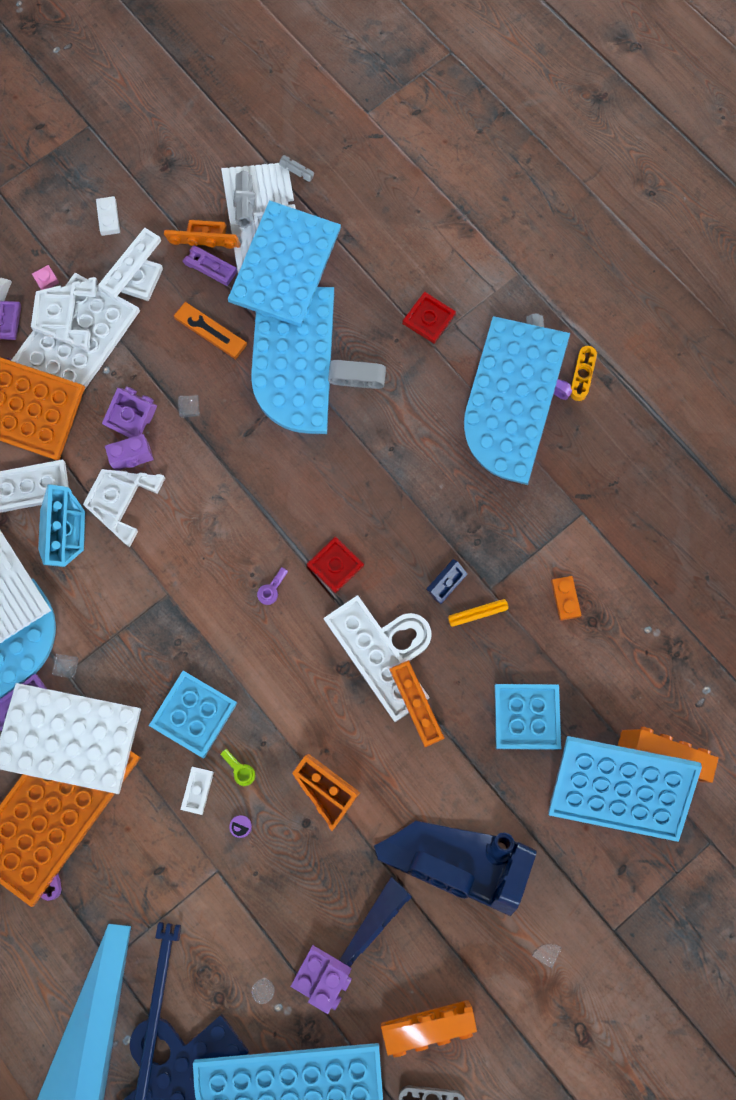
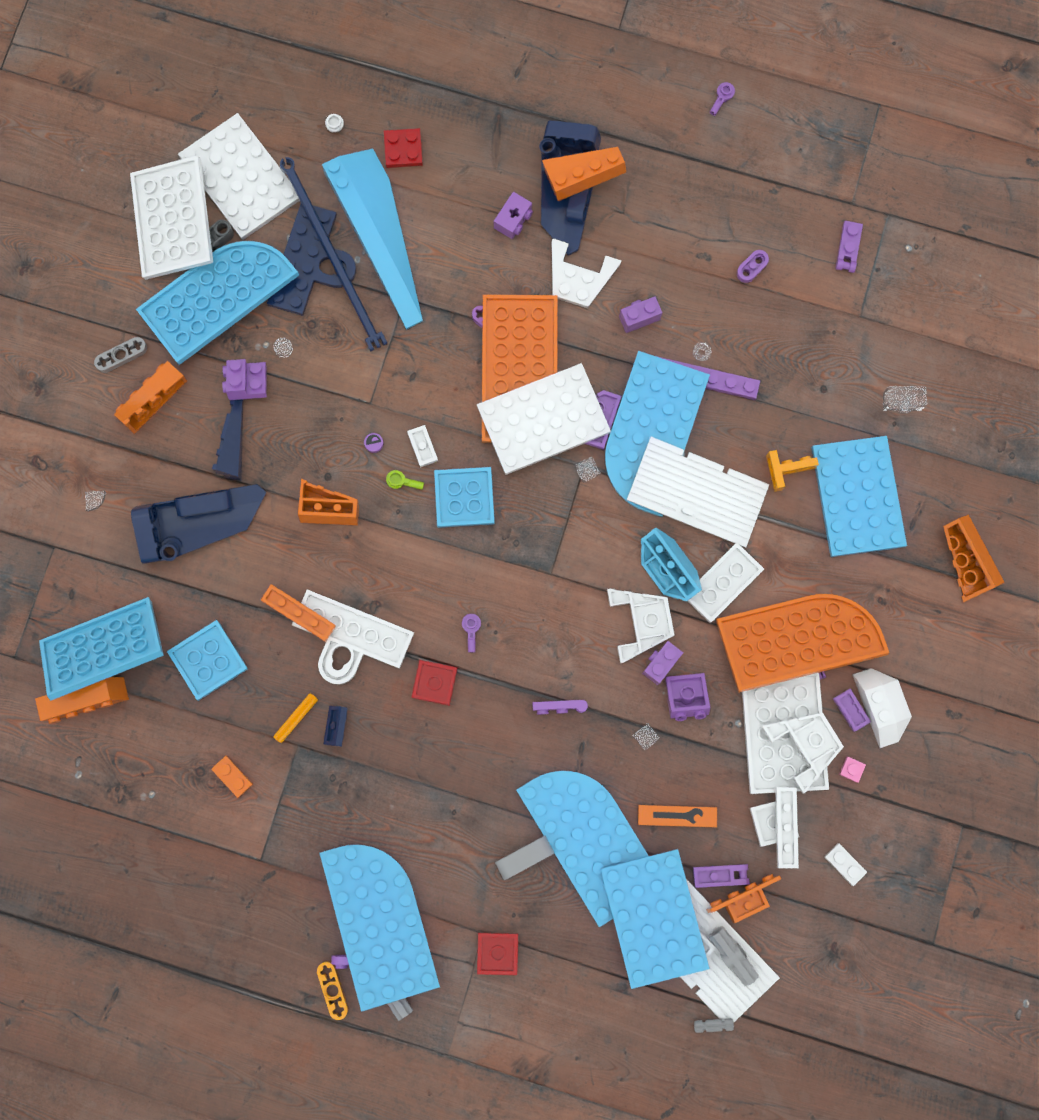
camera: 140 degrees right, 5 degrees up
(241, 473) = (560, 706): none -> medium lavender plate

